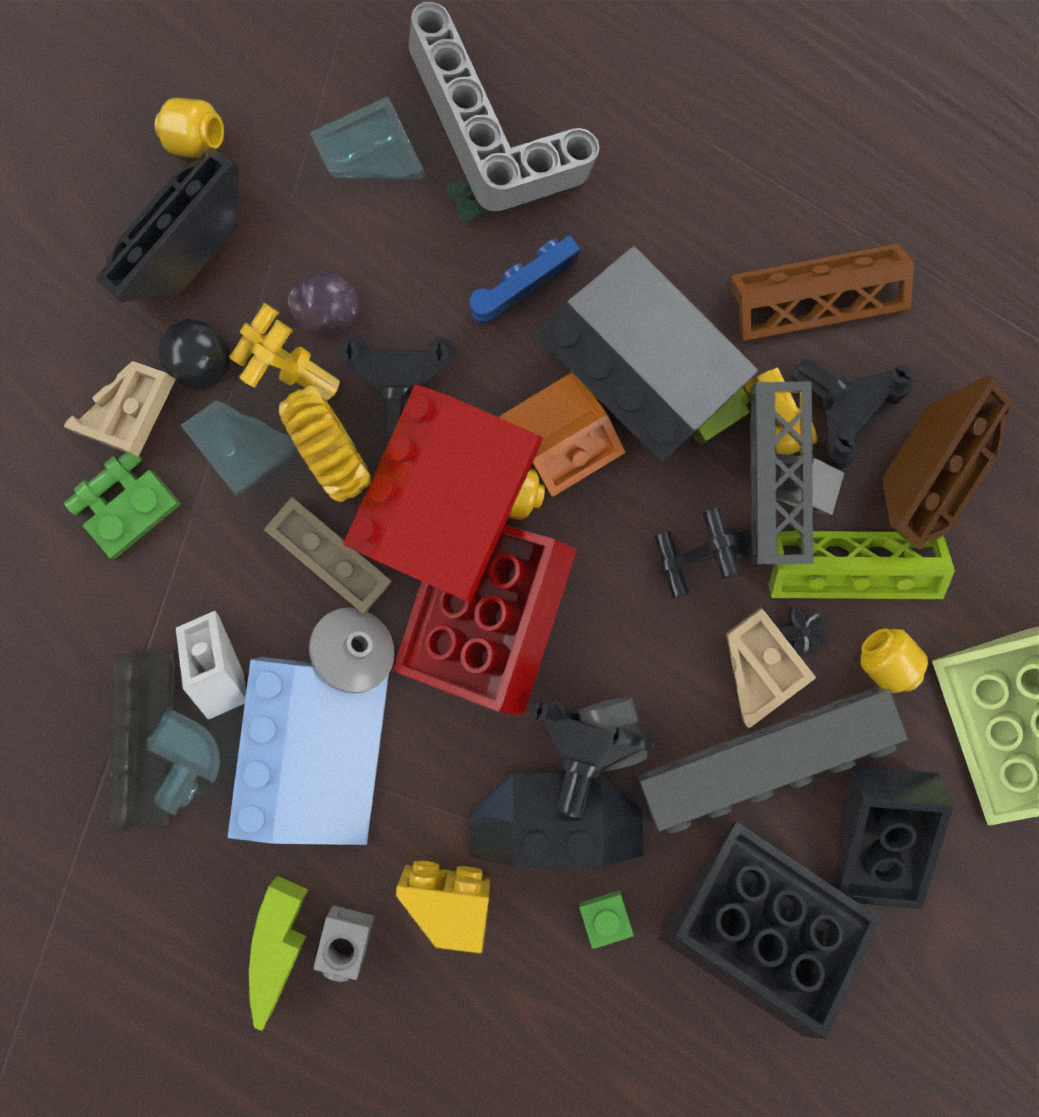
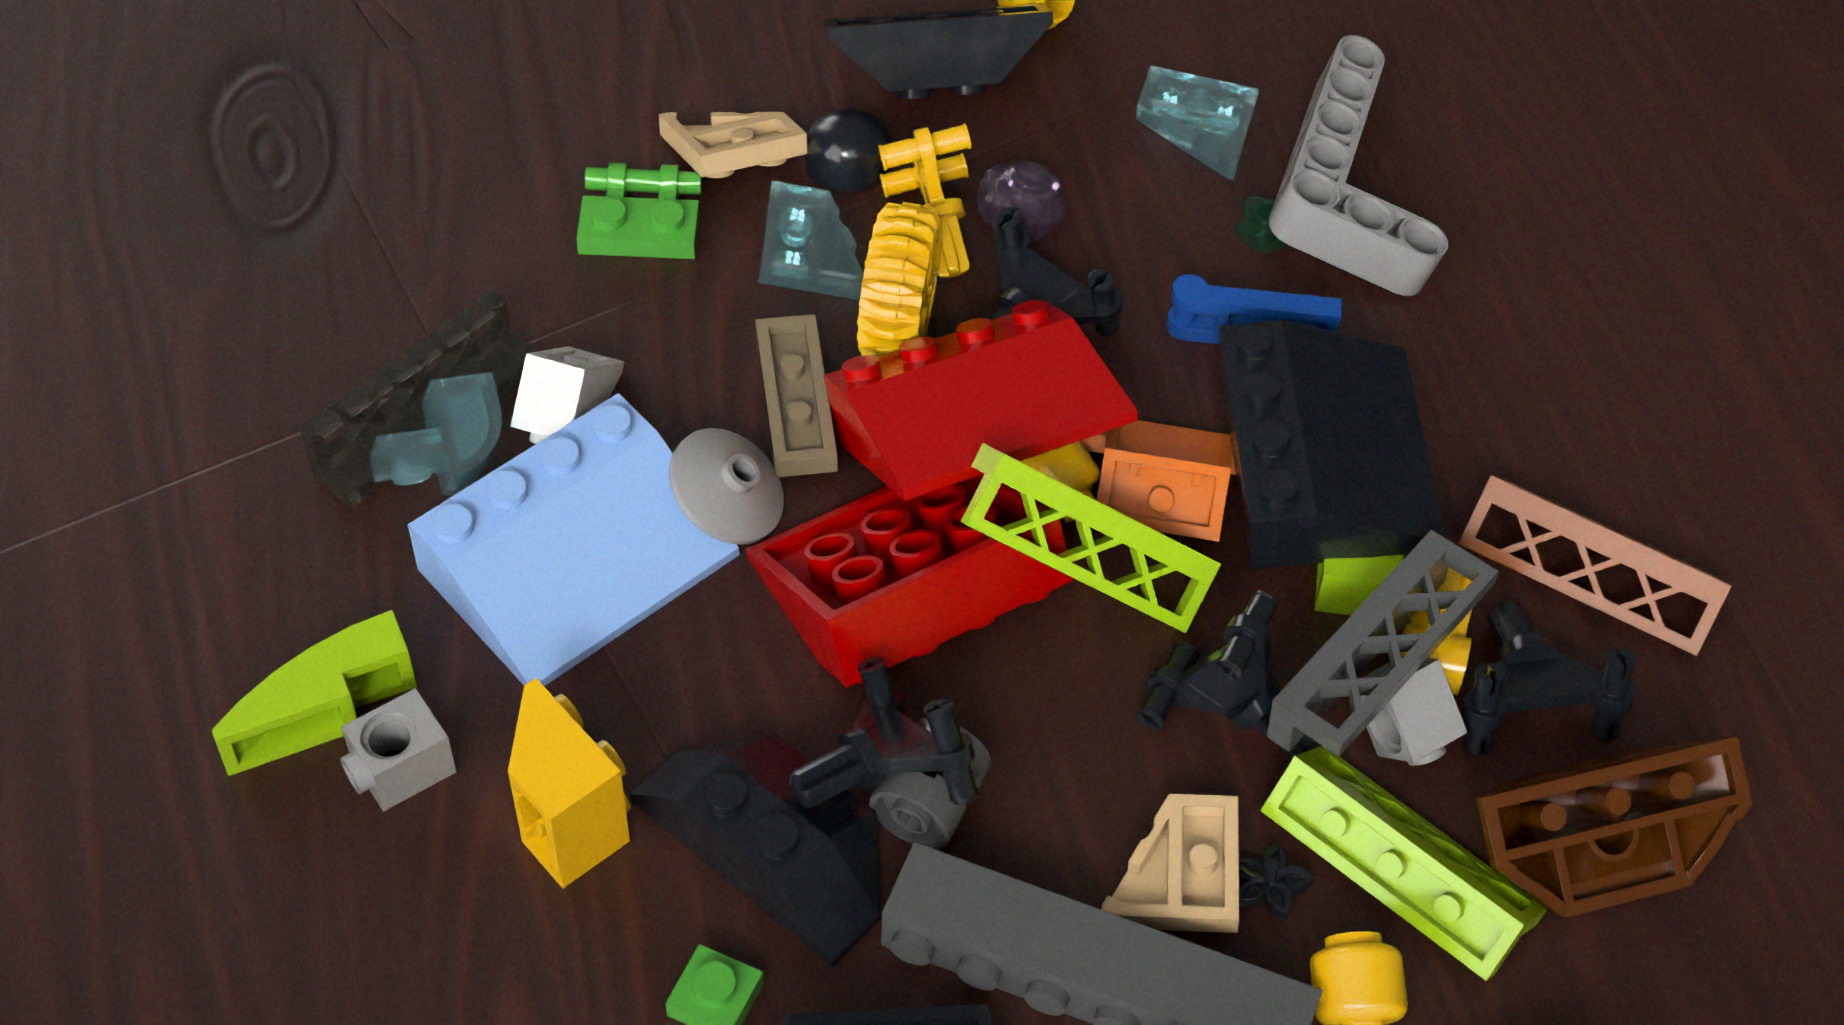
camera: 45 degrees right, 35 degrees down
(572, 519) = (1088, 513): none -> lime fence

